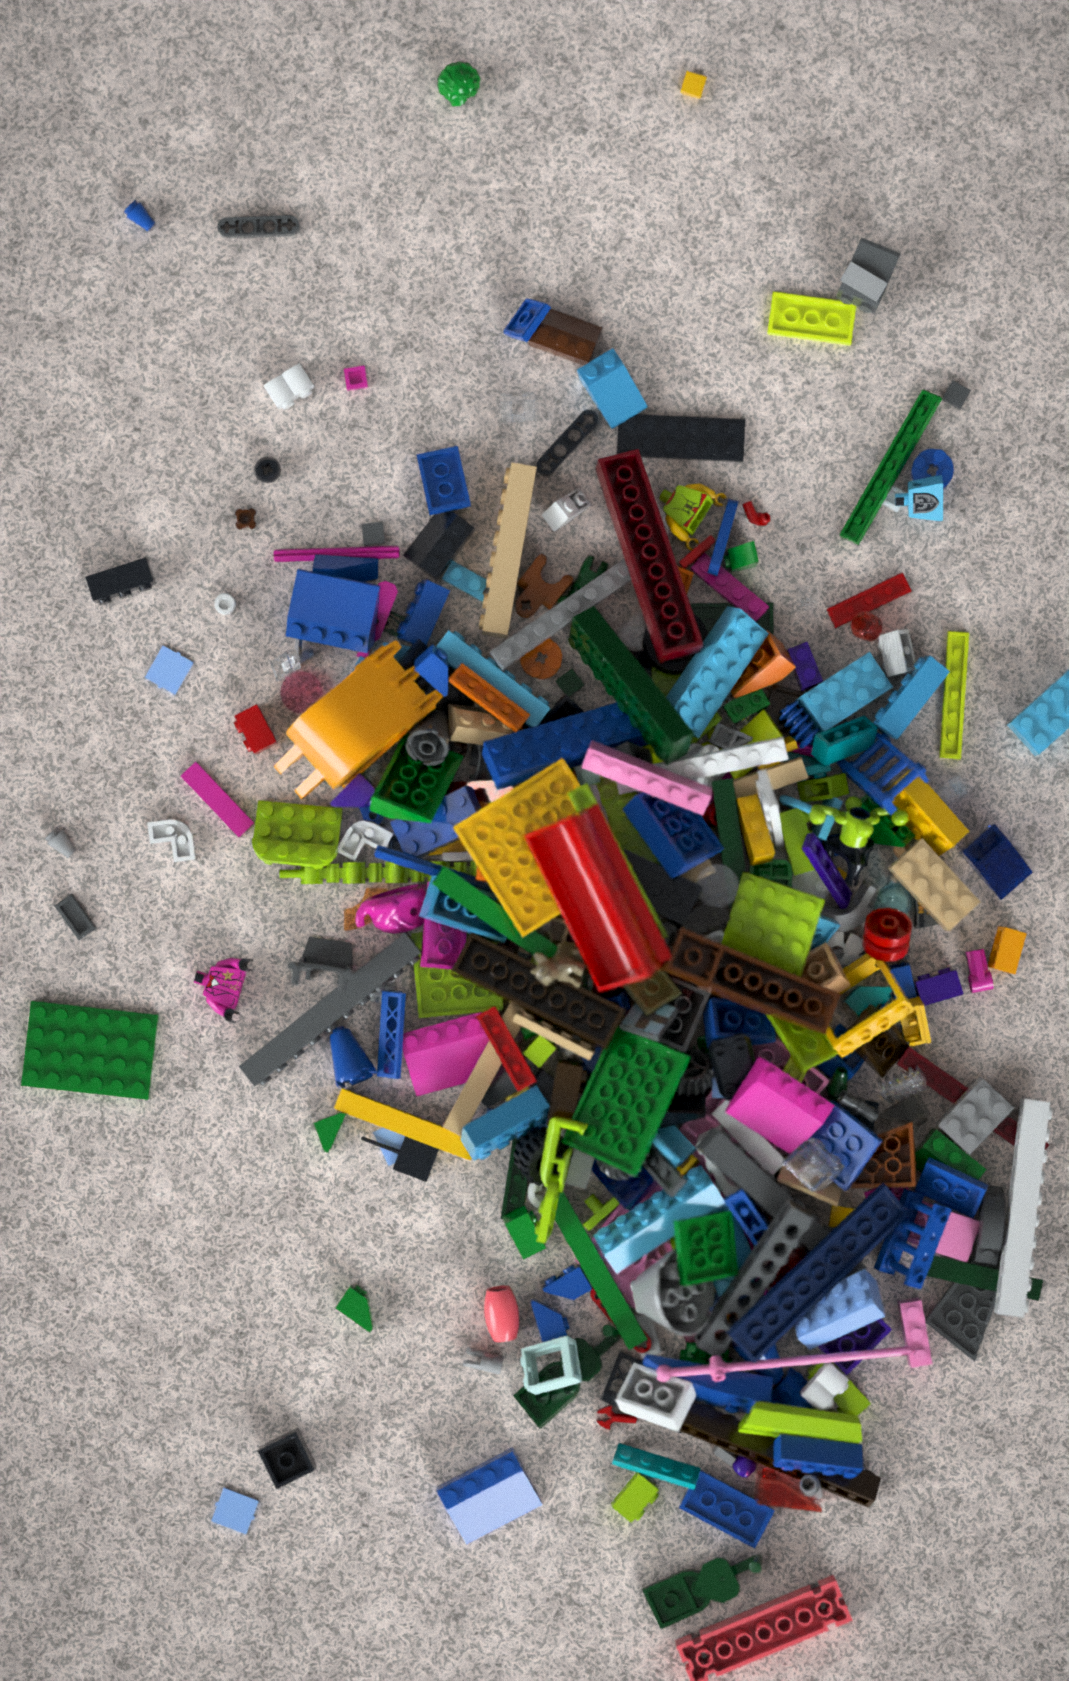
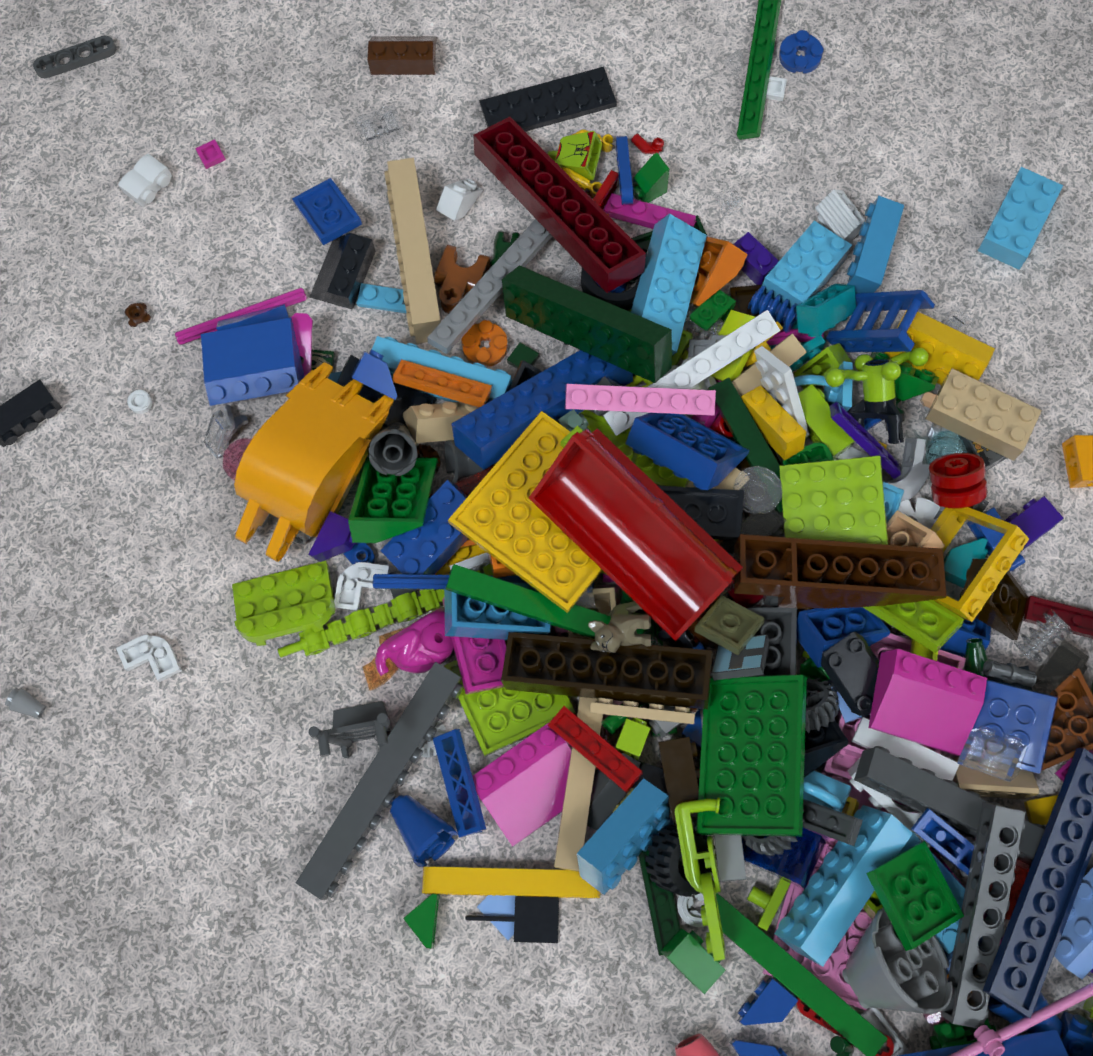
camera: 15 degrees left, 15 degrees down
(75, 917) = (63, 781): dark grey tile -> none
(89, 1050) = (118, 929): green plate -> none
(169, 670) = (98, 486): light blue piece -> none
(217, 799) = (188, 599): dark pink tile -> none
(224, 985) = (253, 795): dark pink torso -> none
(255, 729) = (206, 511): red brick -> none
(264, 462) = (145, 261): black piece -> none
(373, 533) = (272, 285): dark grey tile -> none
(422, 612) = (347, 334): blue brick -> none
(526, 319) = (359, 45): blue tile -> none
(567, 443) = (439, 143): black beam -> none
(611, 388) = (463, 77): dark azure slope -> none
(866, 626) = (800, 203): clear red head -> none
(869, 600) = (790, 184): red tile -> none
(915, 1024) = (1030, 570): yellow hinge -> none
(923, 498) = (805, 73): medium azure torso -> none
(954, 695) = (915, 243): neon yellow tile -> none
(978, 974) = (1068, 497): dark pink piece -> none
(996, 861) = (1031, 376): clear blue slope -> none

